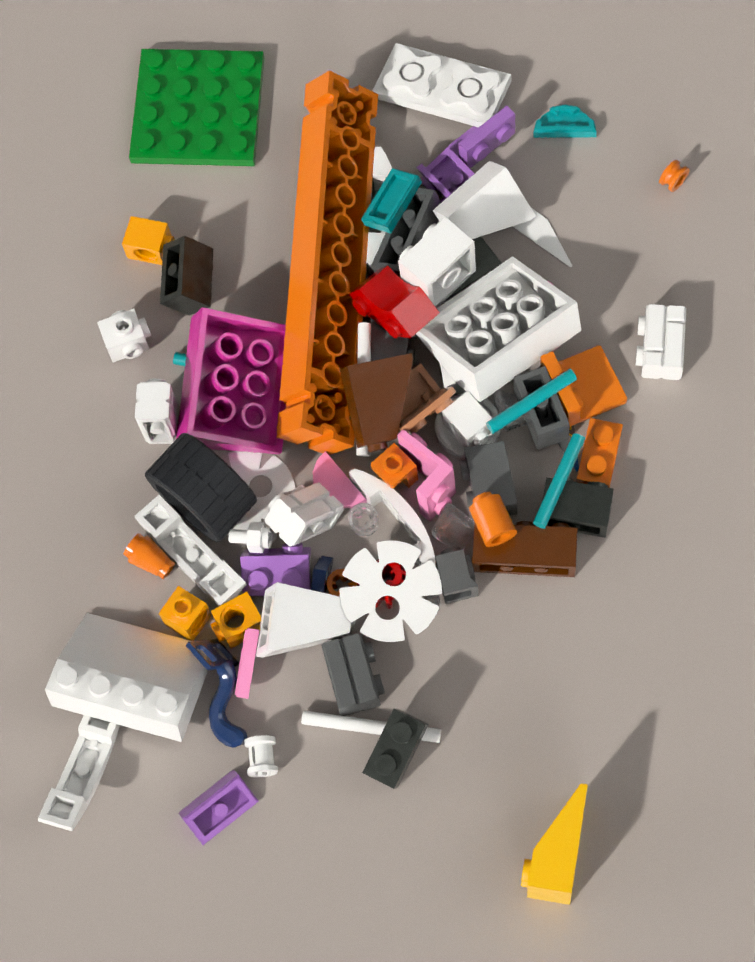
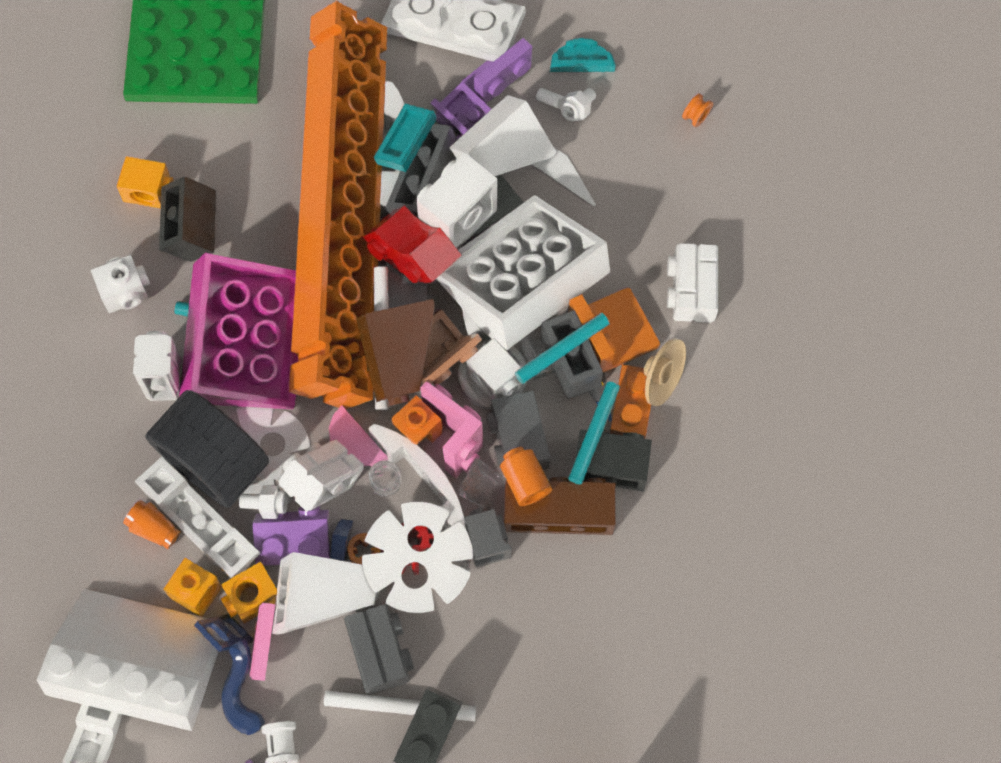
camera: 15 degrees left, 0 degrees up
(554, 170) = (573, 106): none -> white piece
(629, 425) = (664, 371): none -> tan dish

